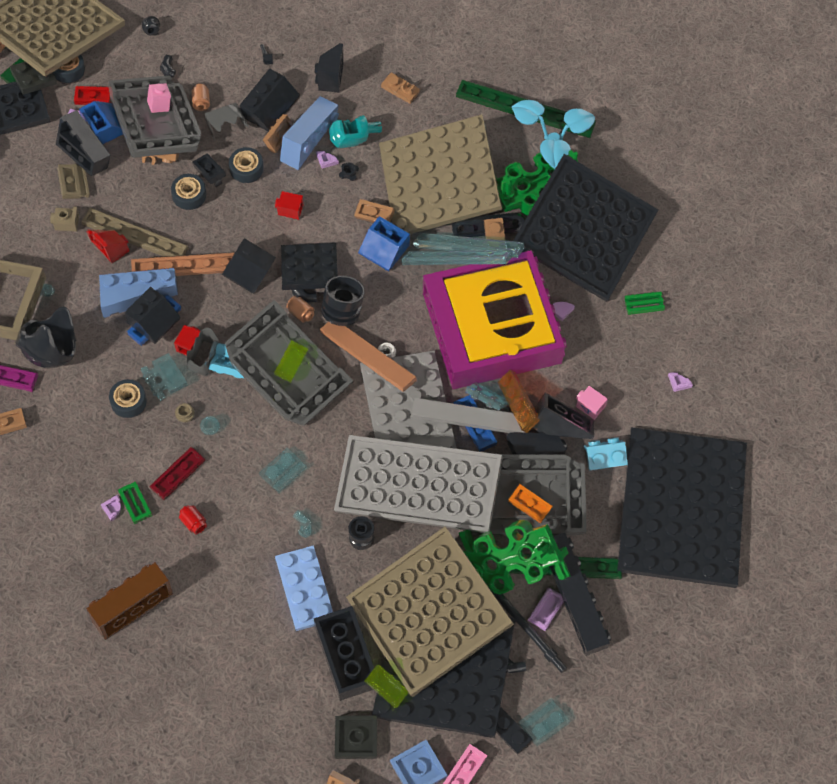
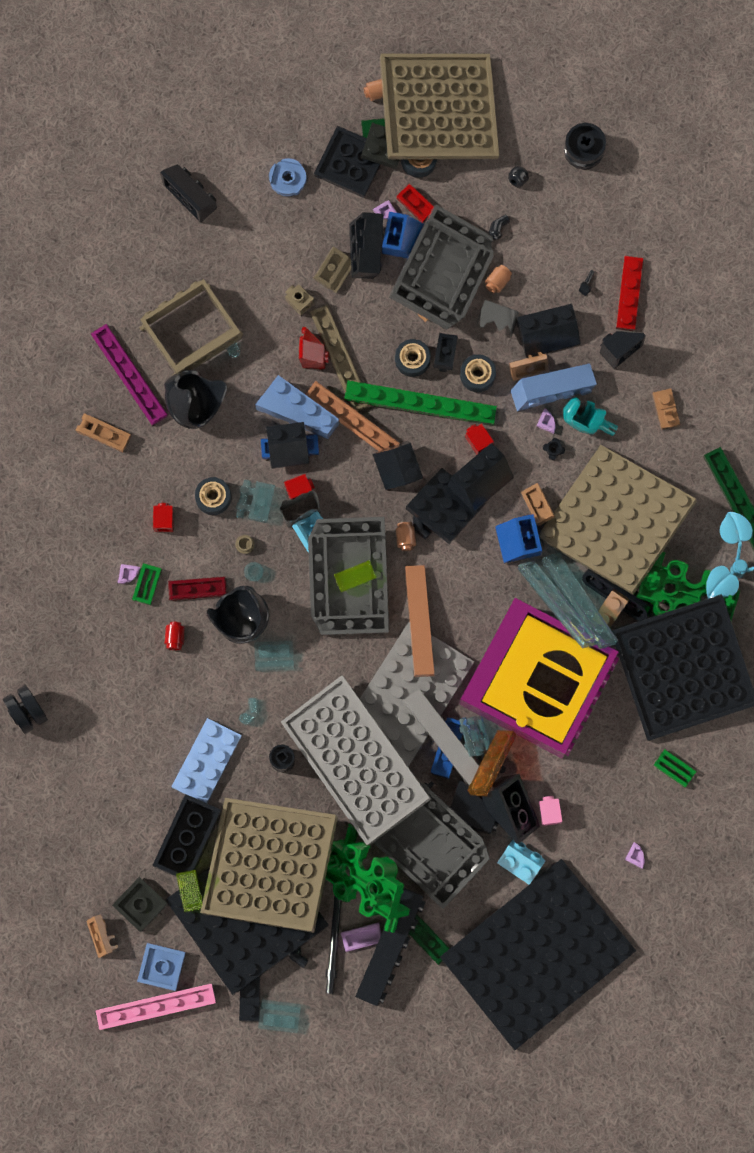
camera: 45 degrees right, 15 degrees up
(103, 444) = (163, 518): none -> red brick
(124, 669) = (25, 709): none -> black wheel
(129, 600) = (73, 660): reddish brown brick -> none
(158, 98) = (459, 255): bright pink brick -> none
(221, 217) = (420, 403): none -> green plate
(231, 455) = (240, 615): none -> black piece
(300, 37) = (629, 293): none -> red plate
(317, 225) = (481, 477): none -> black slope
(342, 300) = (446, 554): black wheel -> none
(389, 347) = (438, 623): white plate -> none
(530, 503) = (421, 850): orange plate -> none
(563, 309) = (604, 715): lavender tile -> none

